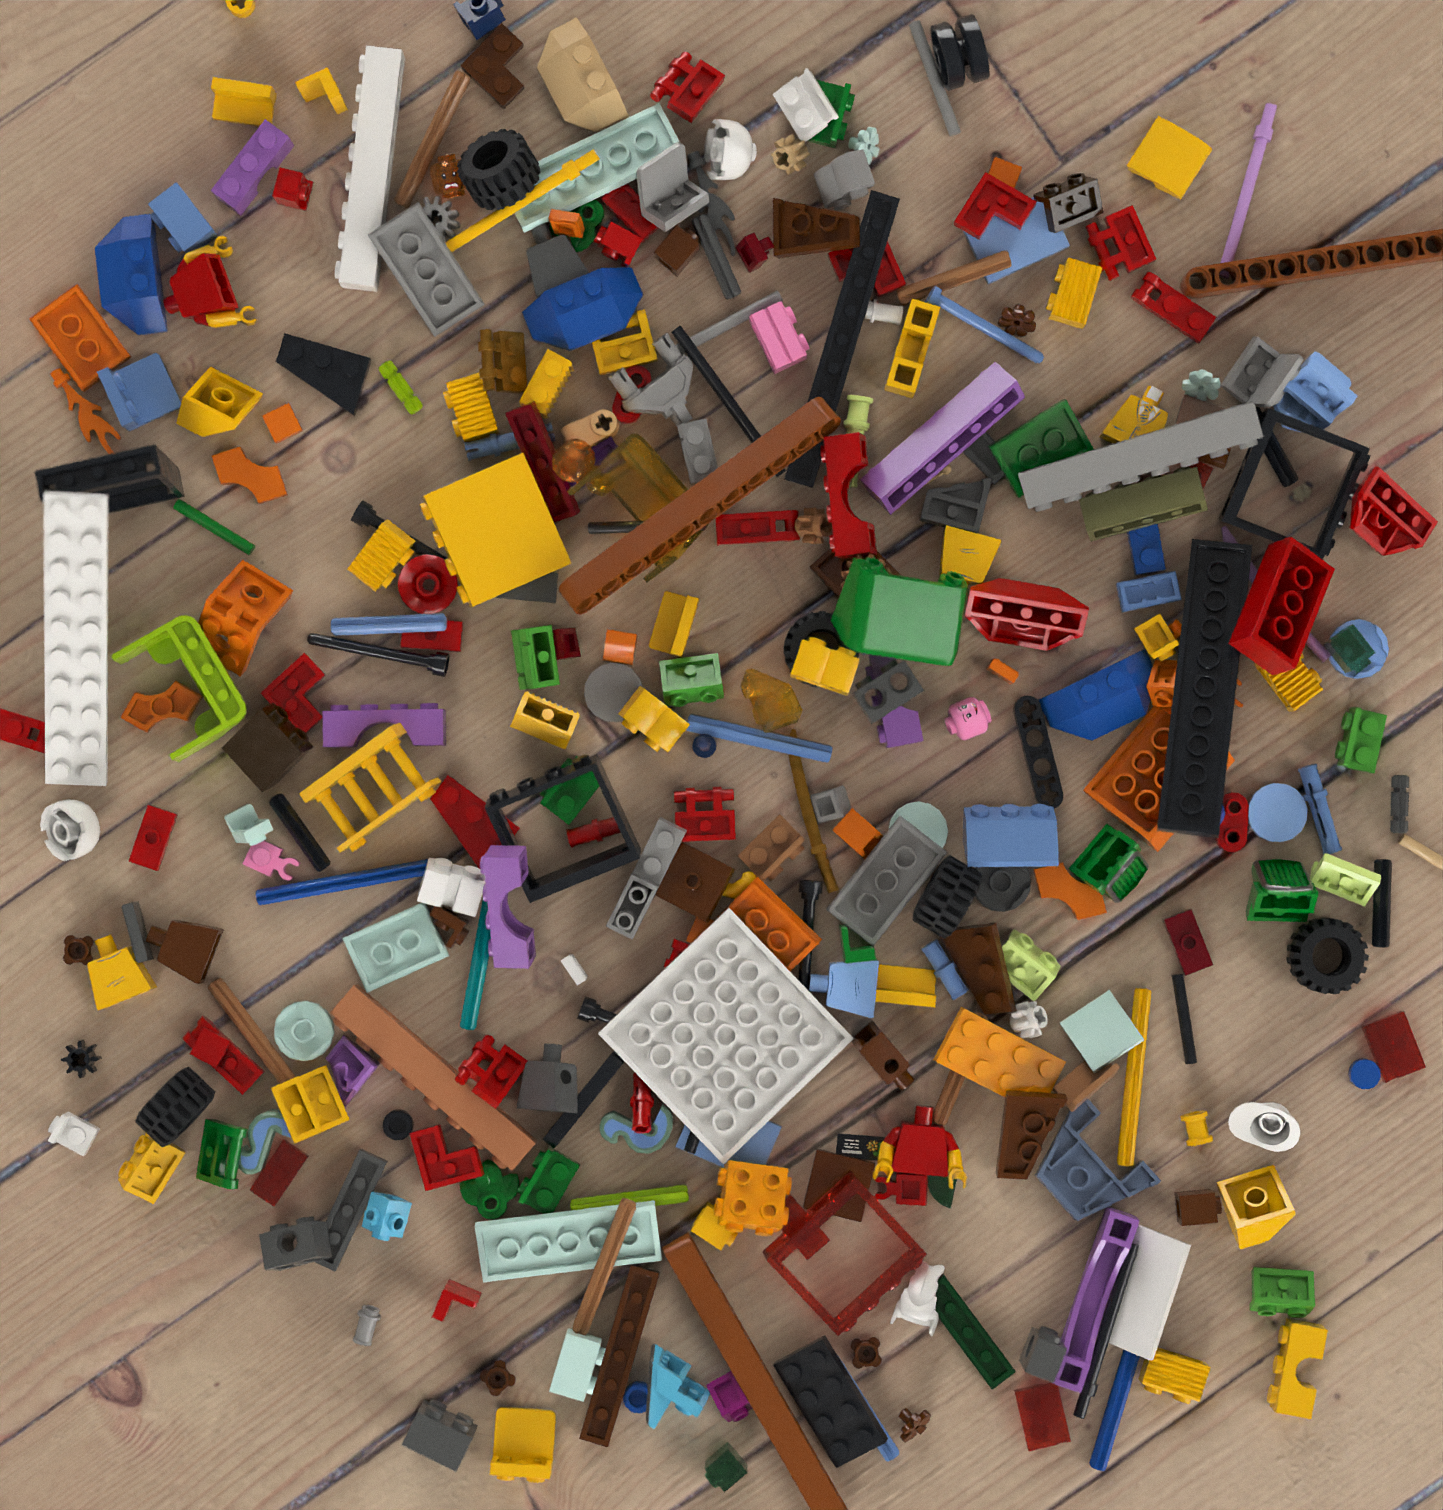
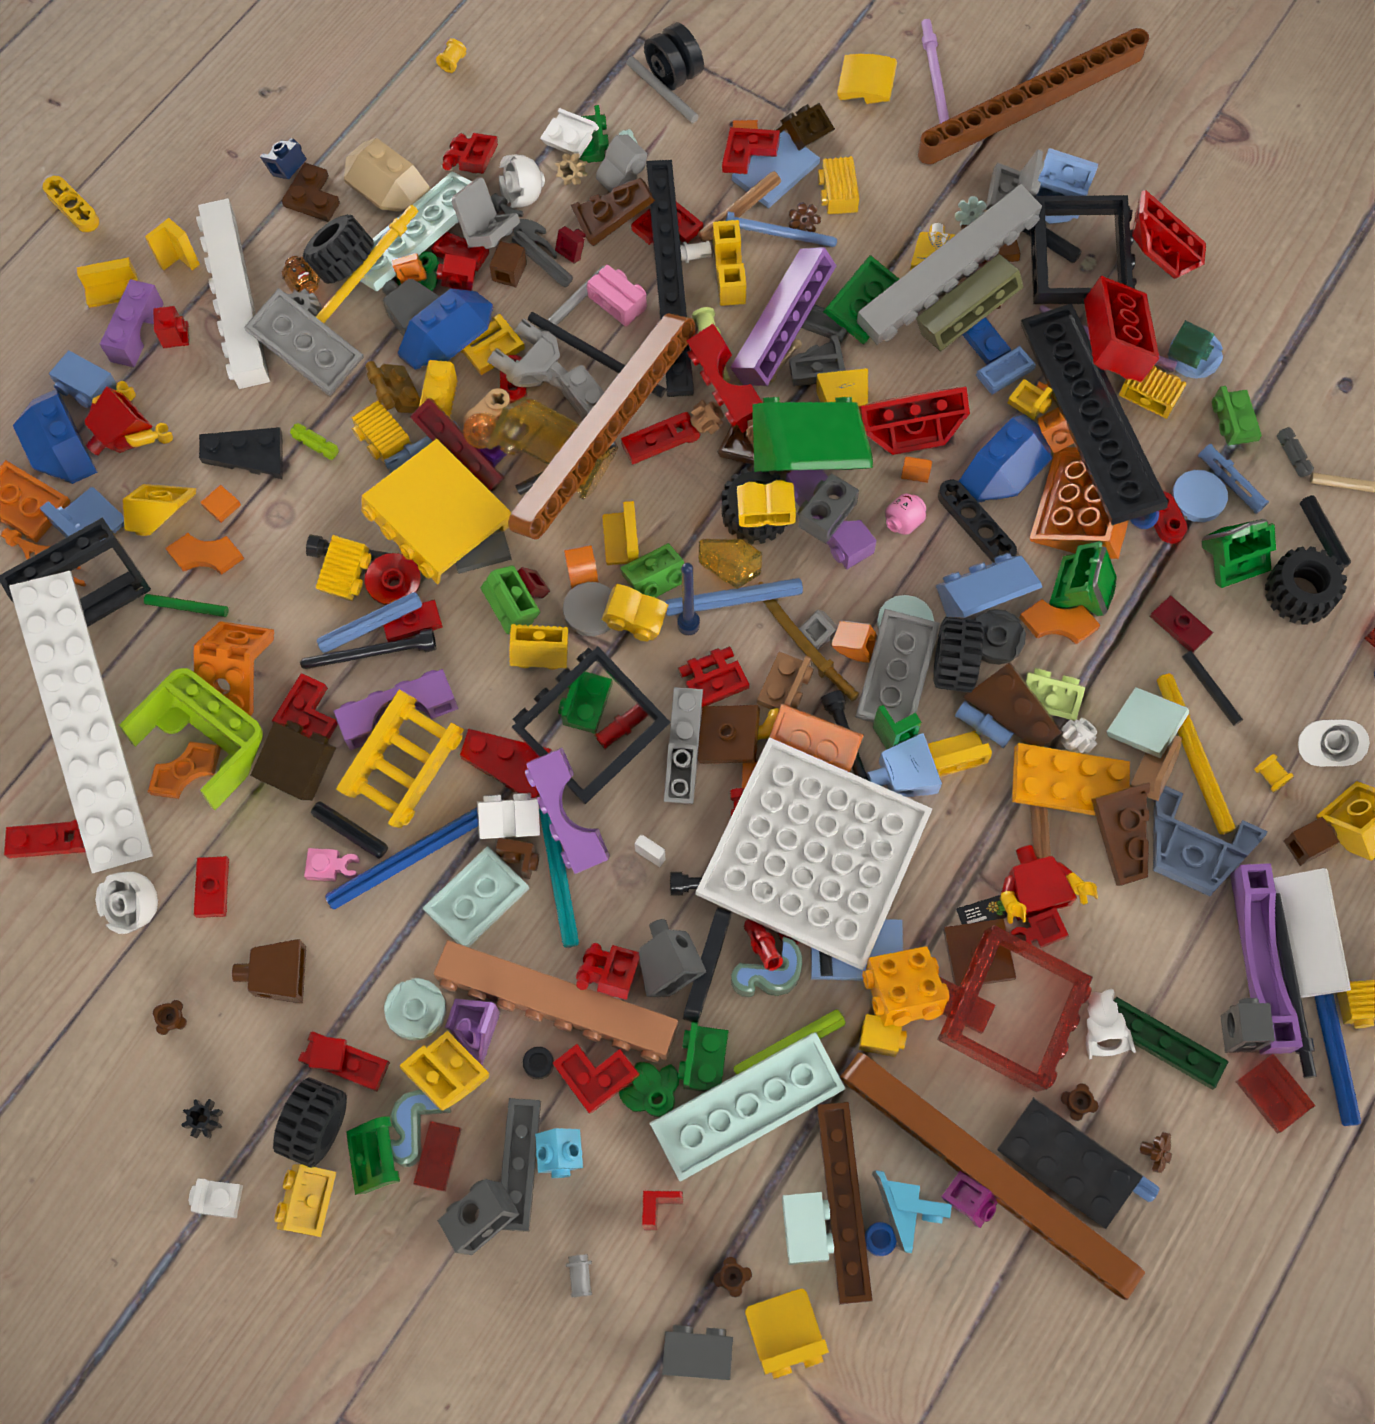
camera: 20 degrees left, 20 degrees down
(117, 974) = (214, 1024): yellow torso -> none
(137, 932) = (222, 976): dark grey tile -> none
(247, 826) = (295, 839): light aqua bracket -> none
(250, 1030) = (359, 1026): medium nougat axle -> none
(432, 139) = (277, 251): medium nougat axle -> none
(604, 1266) = (792, 1115): medium nougat axle -> none
(725, 1467) = (998, 1272): clear green brick -> none
(877, 1050) = (965, 814): reddish brown torso -> none
(940, 1190) = (1075, 919): clear green tile -> none
(1128, 238) = (863, 138): red plate -> none
(1174, 308) = (920, 172): red plate -> none
(1344, 879) = (1290, 517): yellowish green bracket -> none

